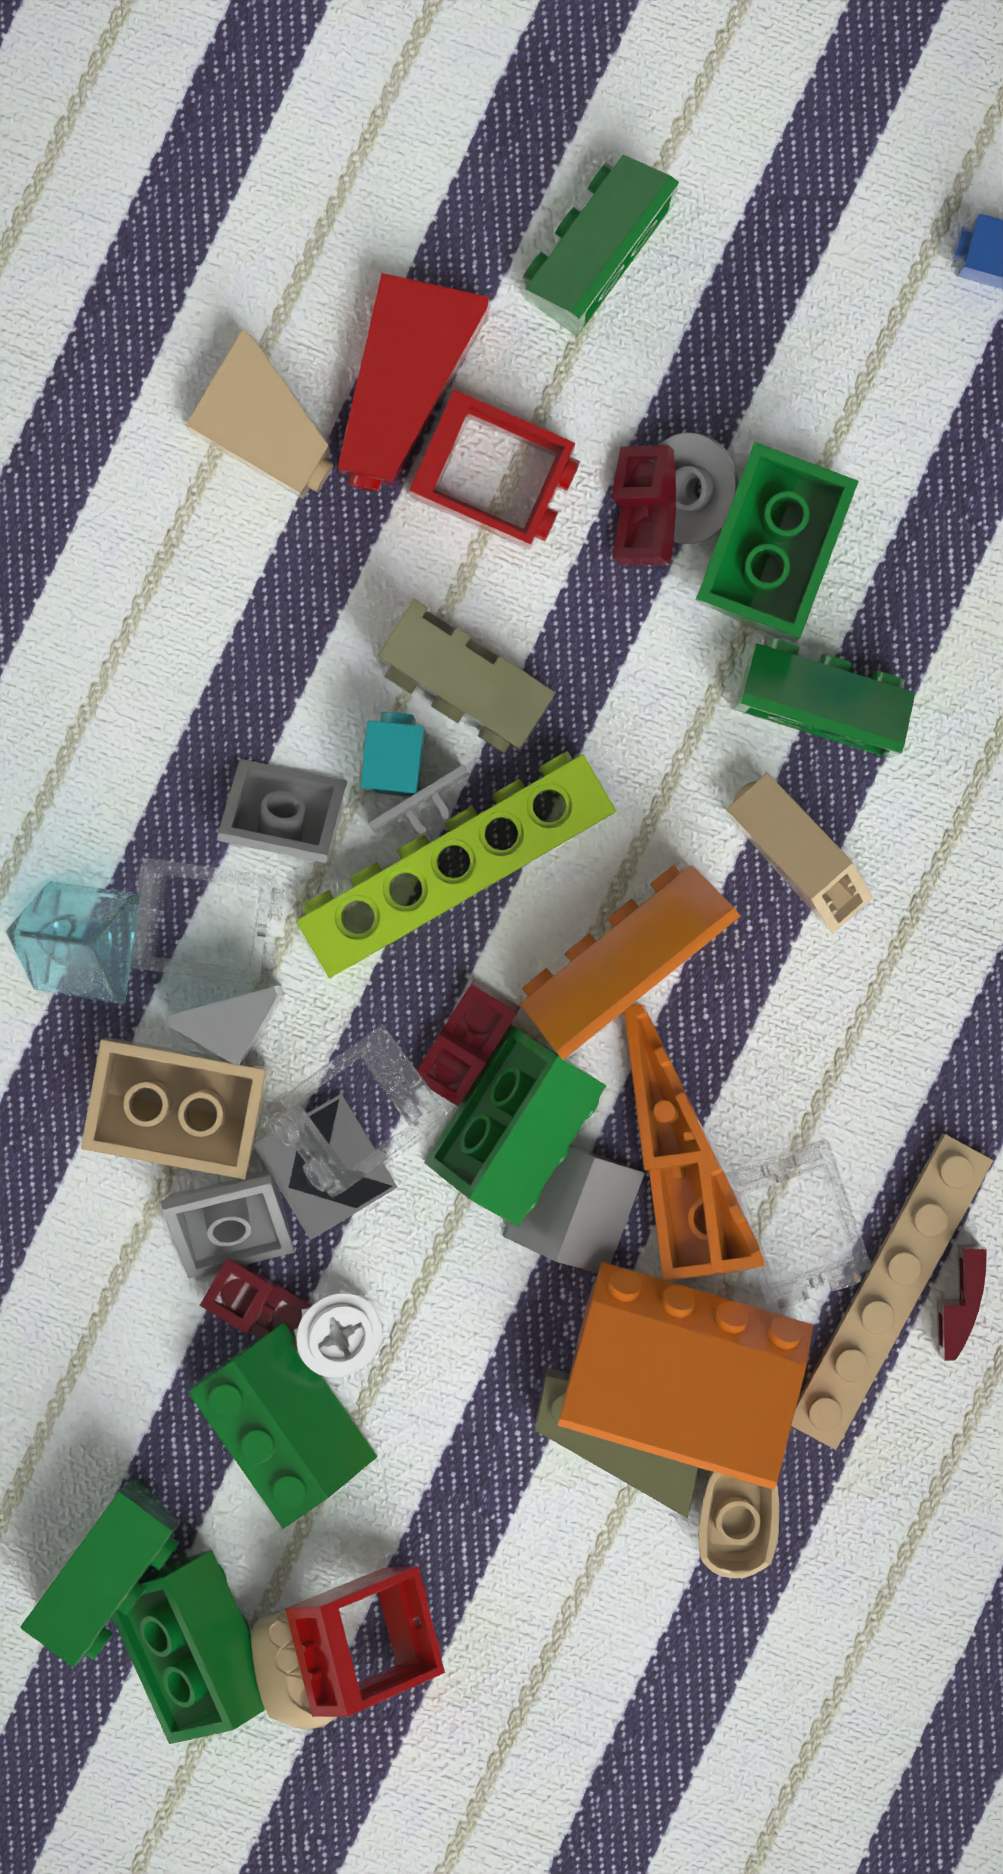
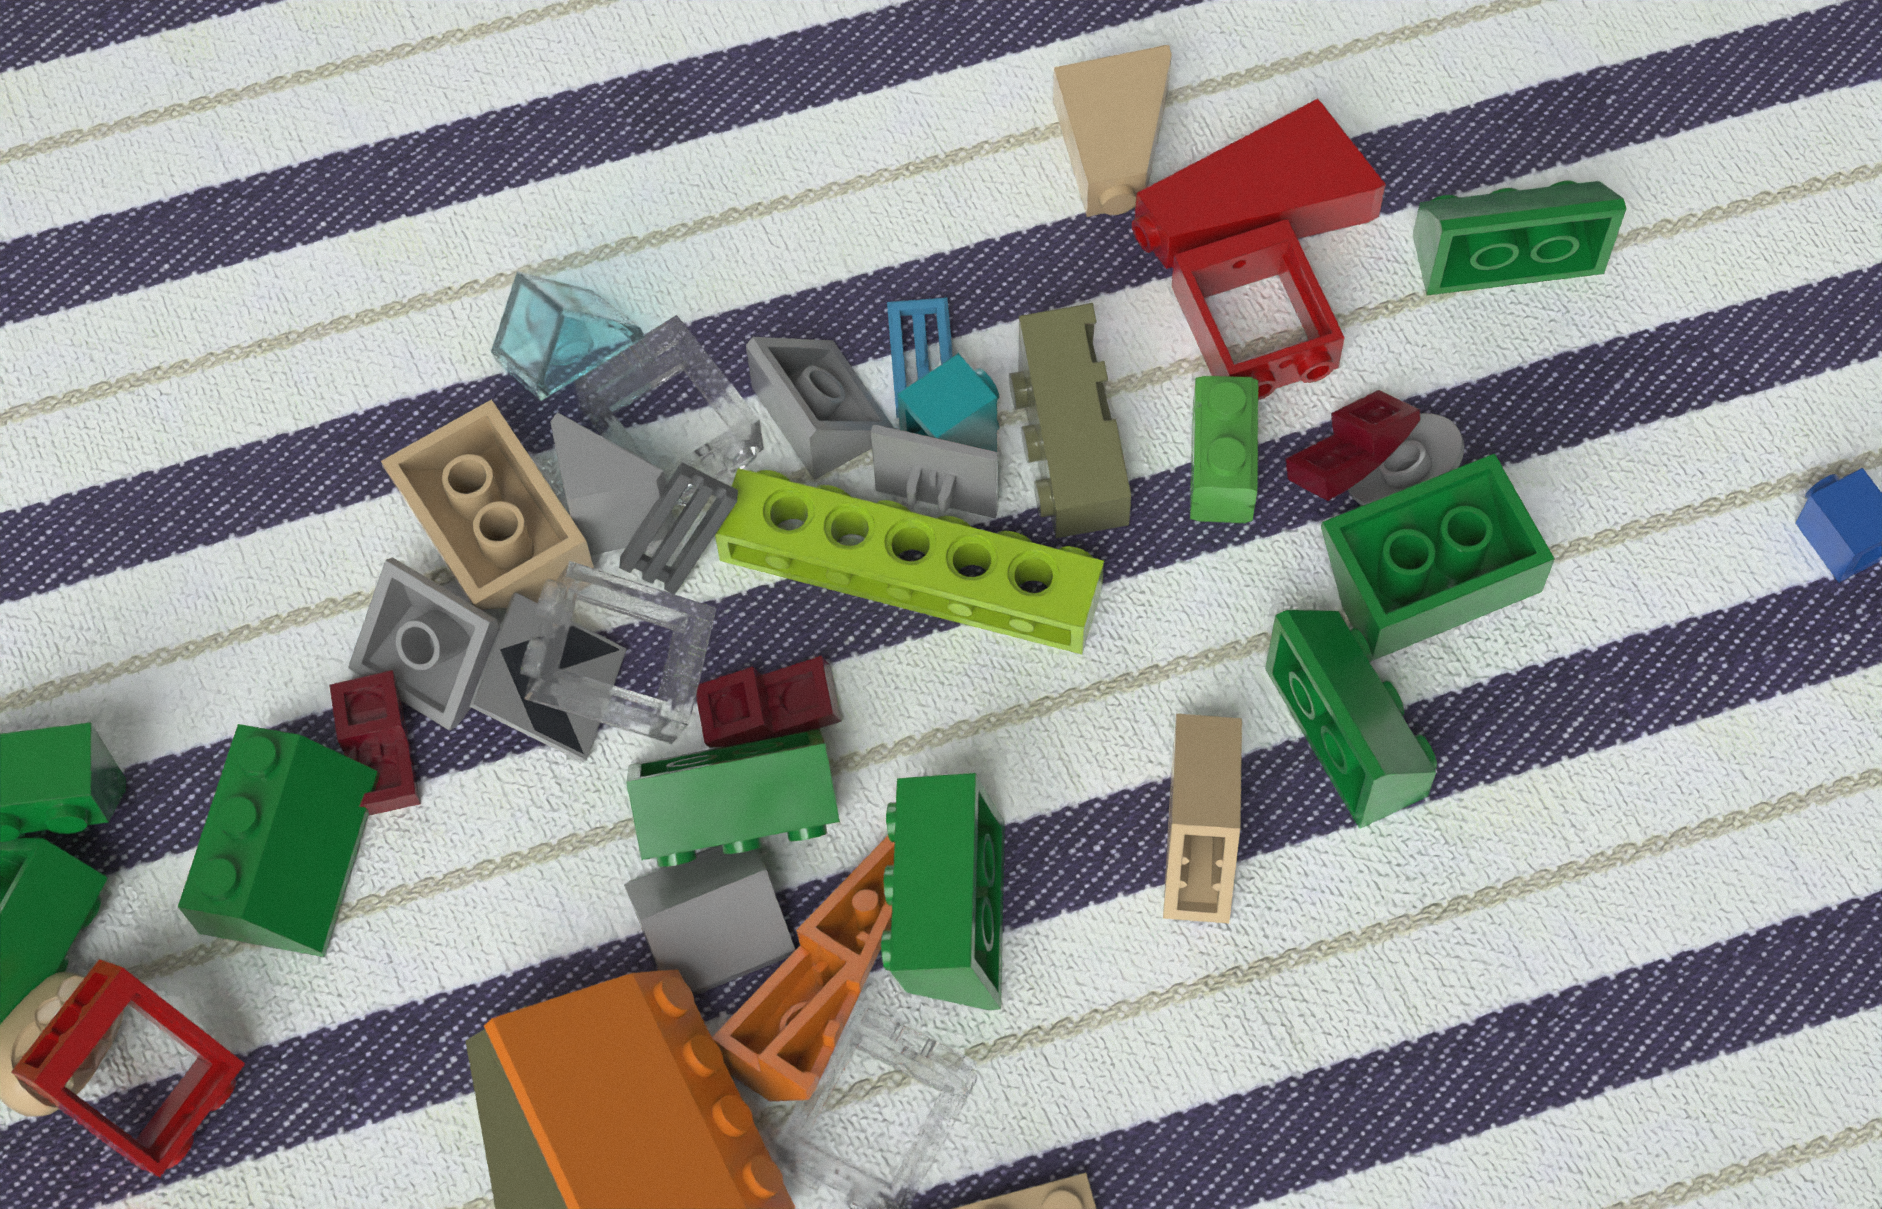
camera: 55 degrees right, 25 degrees down
(312, 993) = (656, 567): none -> dark grey tile
(345, 743) = (917, 309): none -> dark azure tile
(360, 1339) = (377, 829): white gear -> none
(571, 593) = (1224, 449): none -> bright green brick
(628, 959) = (1020, 760): orange slope -> none
(708, 1061) = (945, 890): none -> green slope

